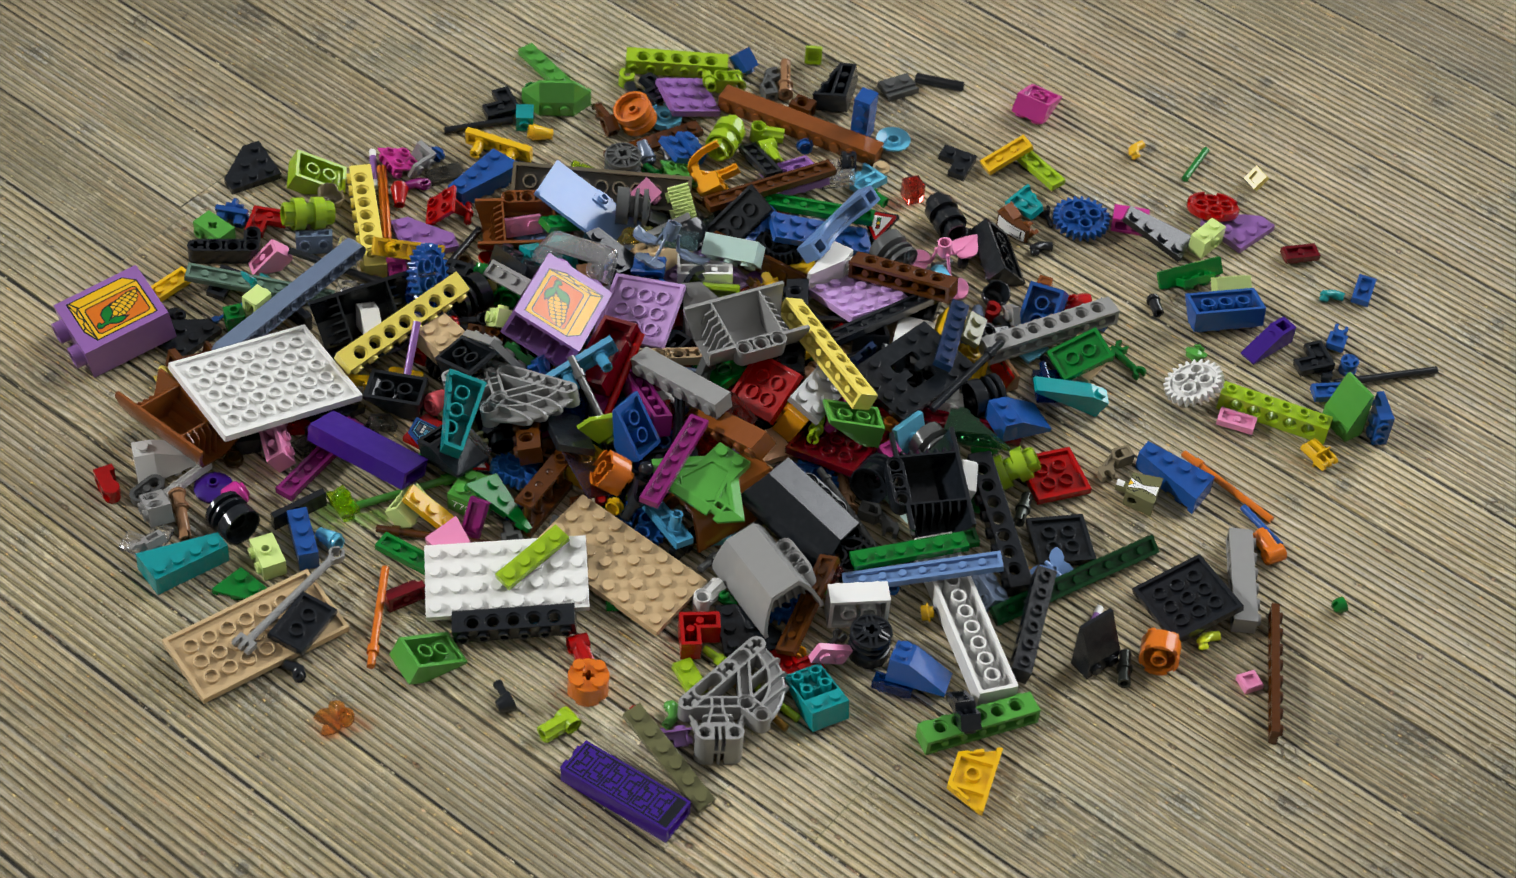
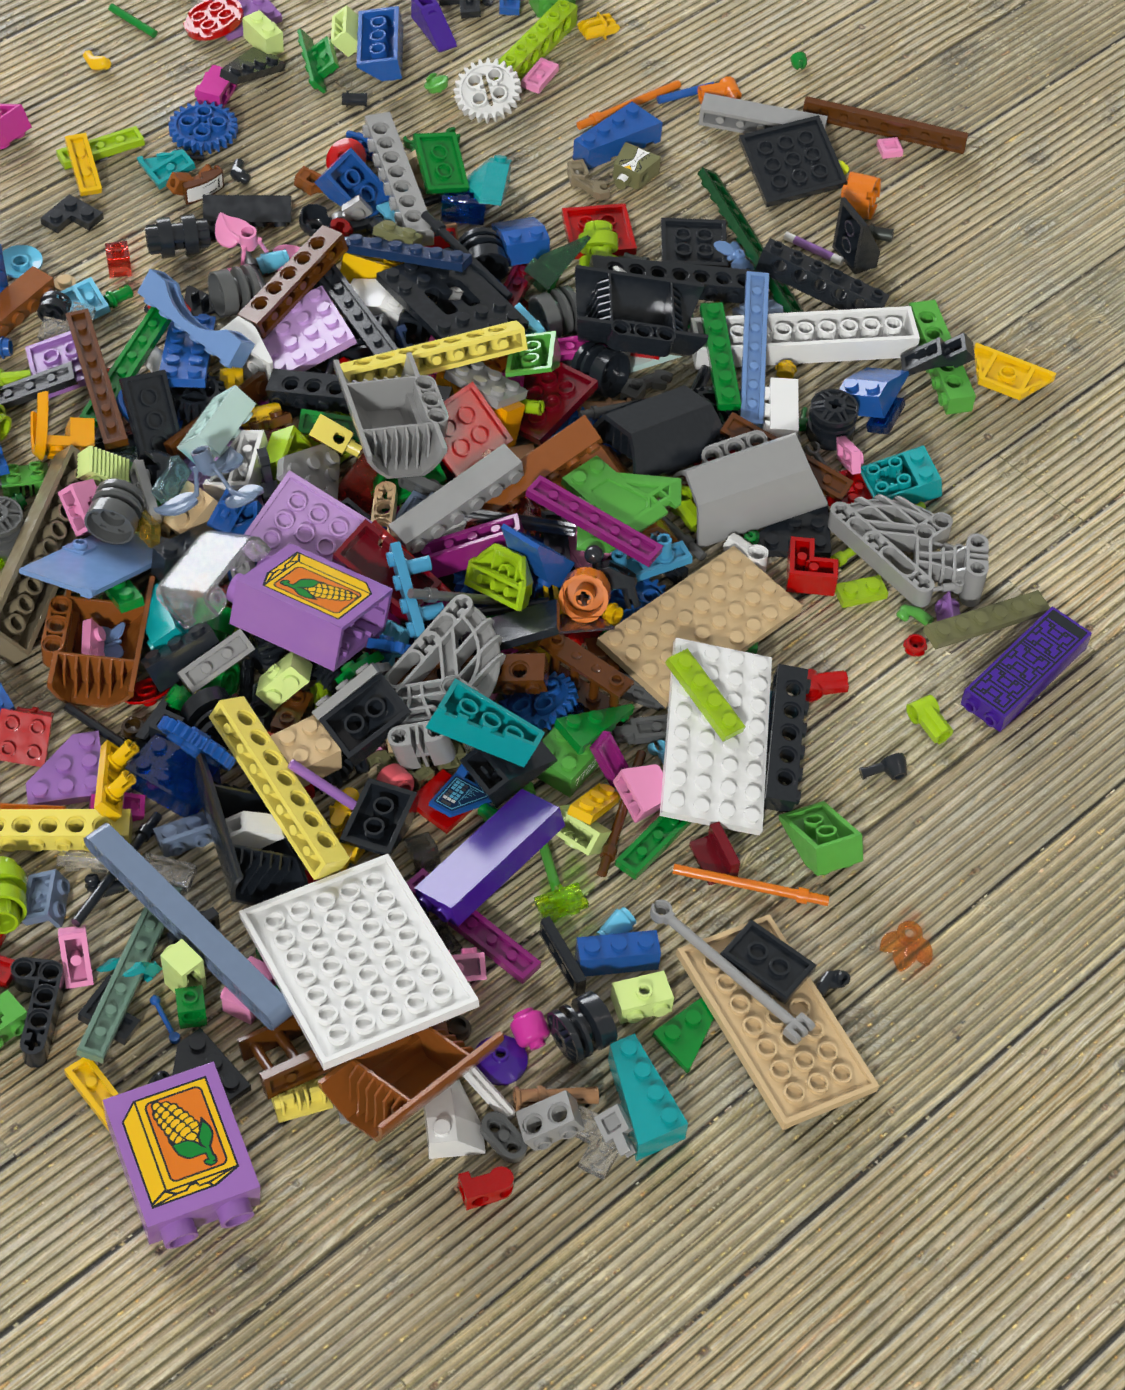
camera: 80 degrees left, 5 degrees up
(588, 681) = (872, 680): orange brick -> none

